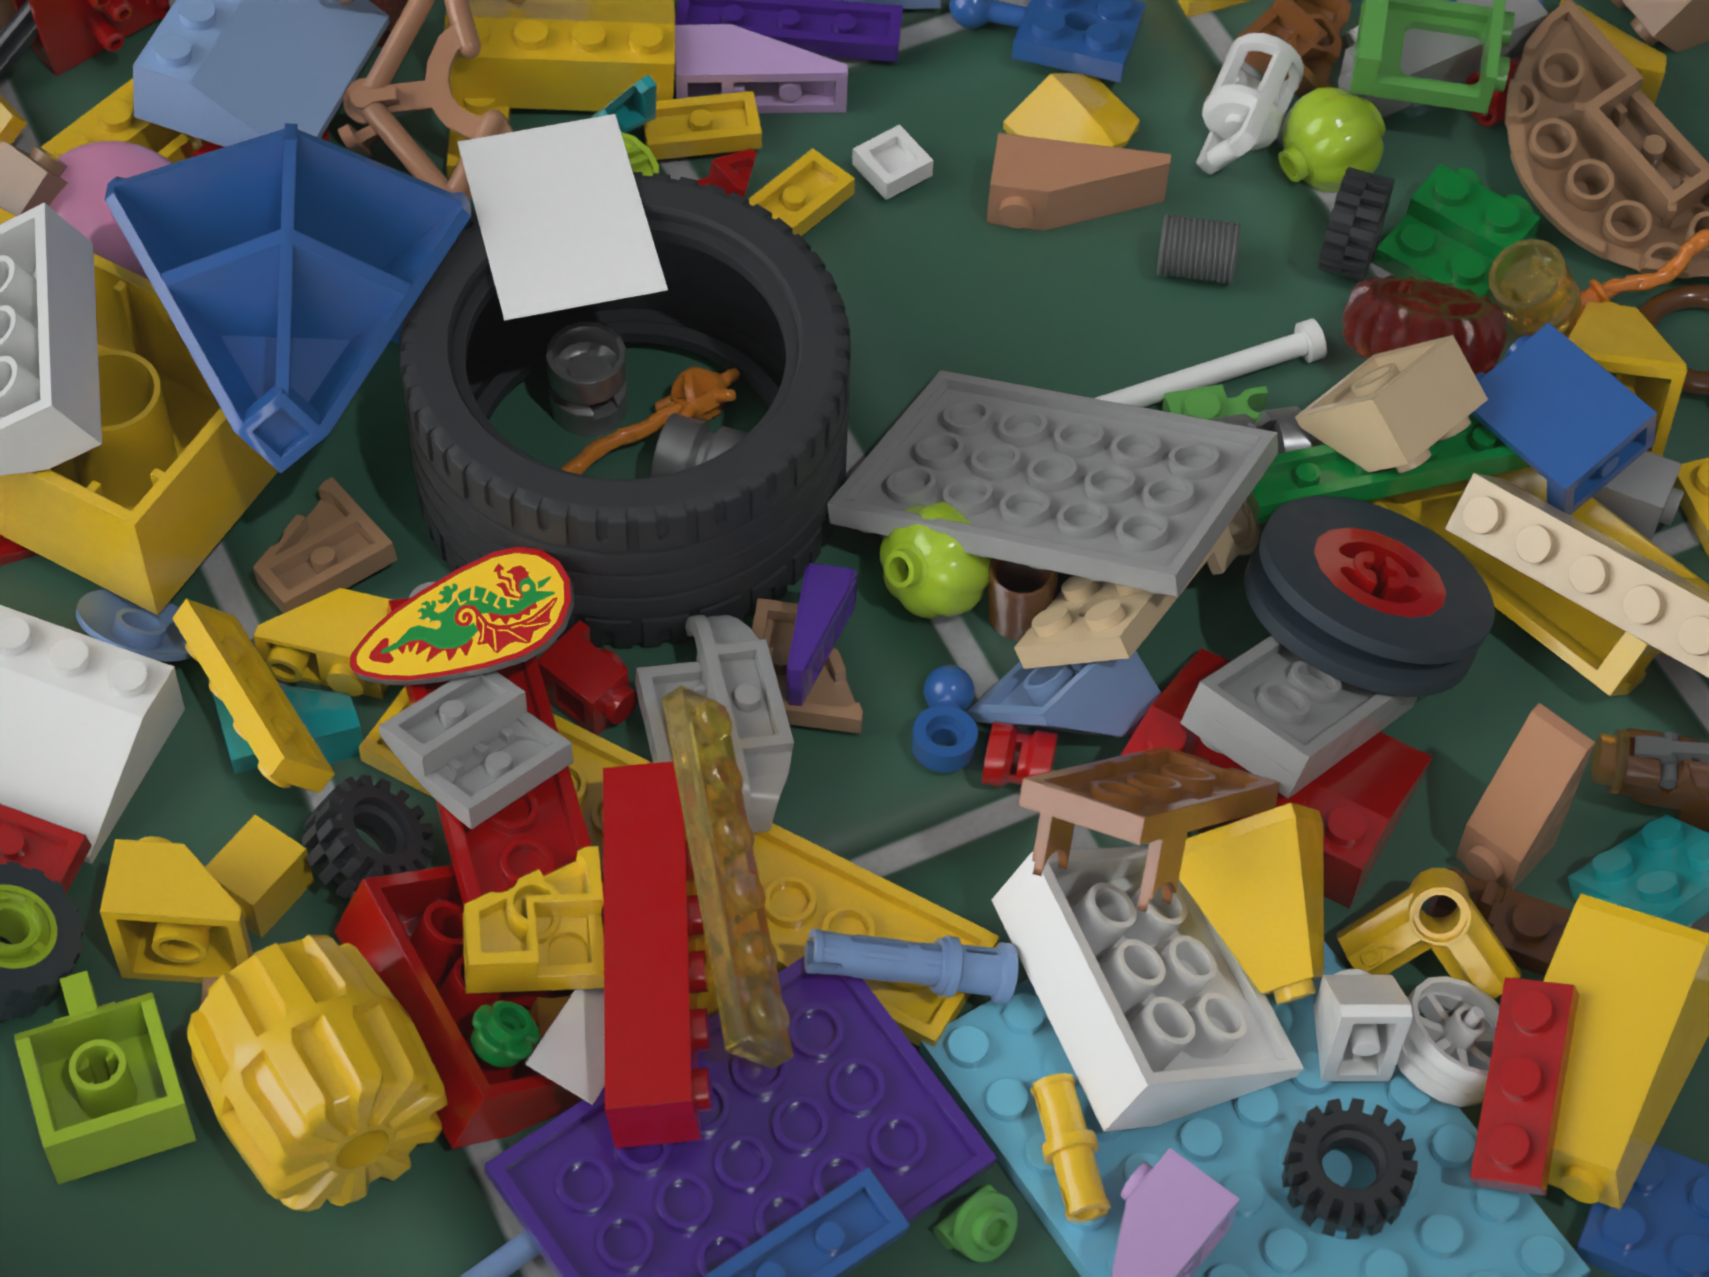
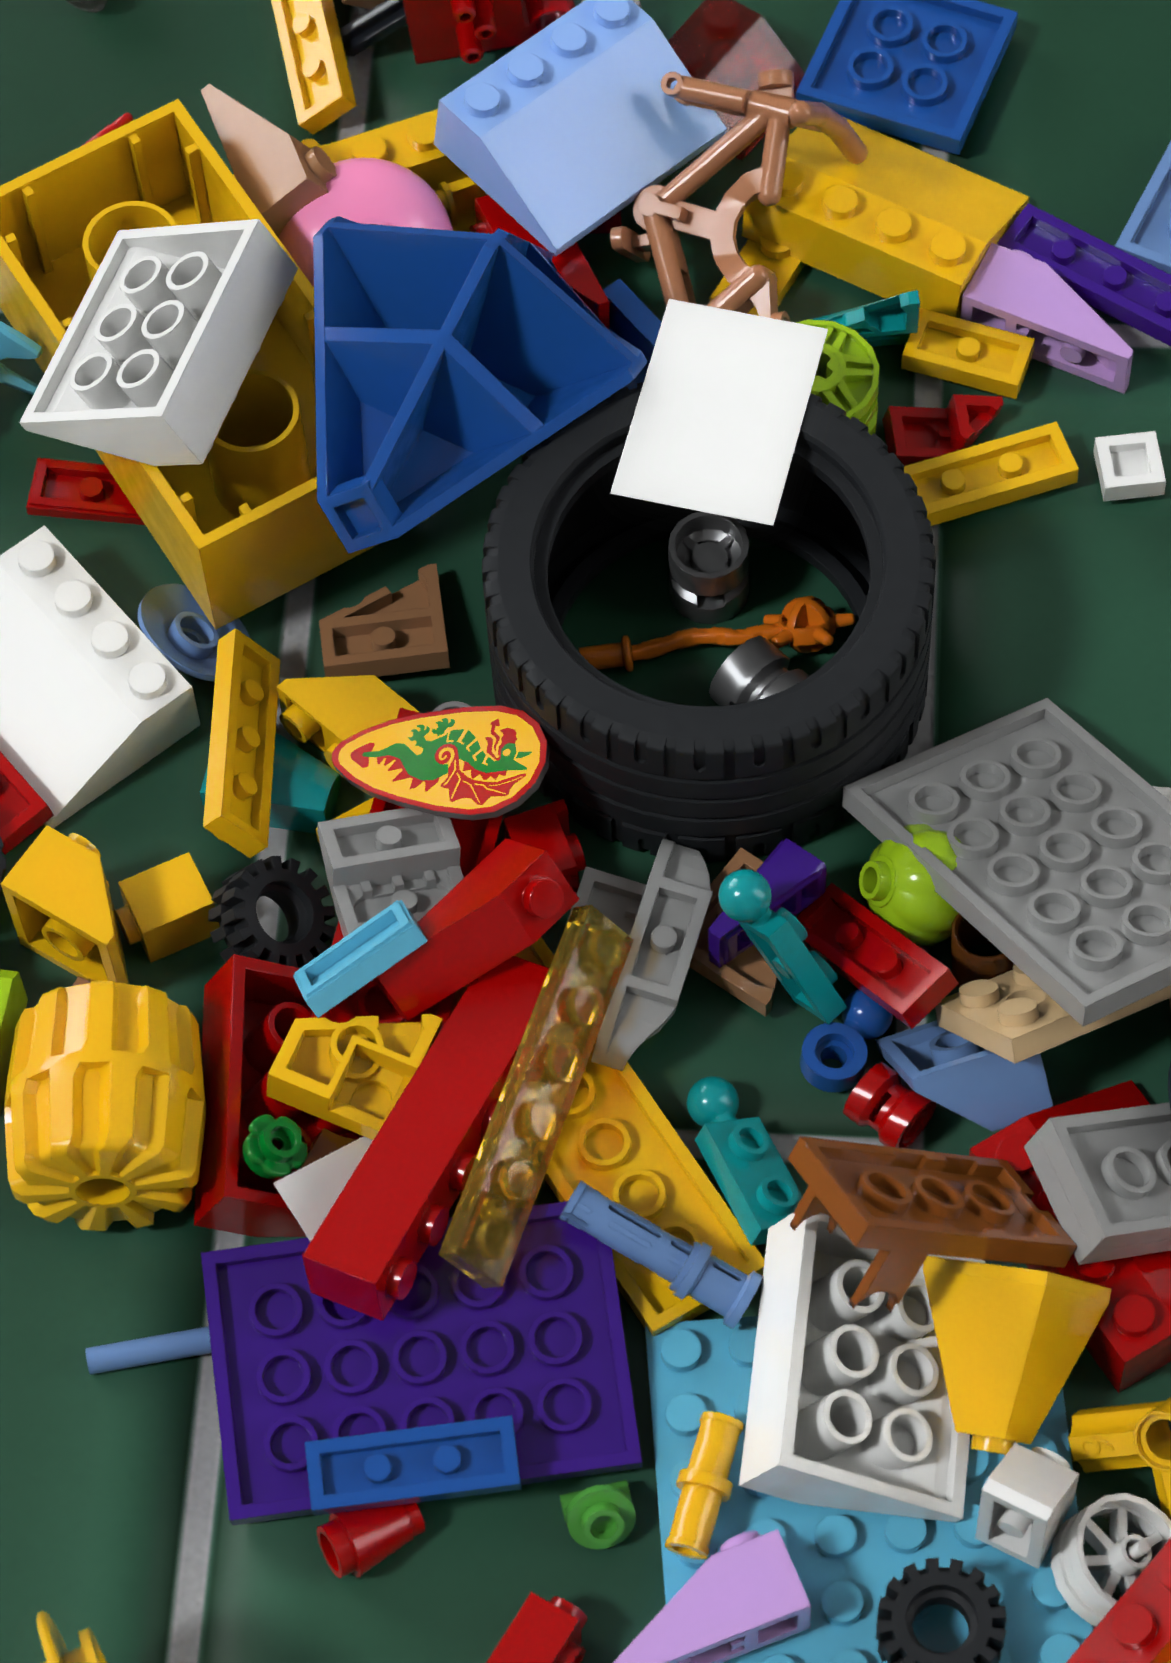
camera: 35 degrees right, 5 degrees up
(494, 824) = (359, 958): none -> medium azure tile
(585, 750) = (480, 925): none -> red slope
(859, 654) = (779, 939): none -> teal plate
(922, 860) = (741, 1159): none -> teal plate
(934, 635) = (875, 956): none -> red plate

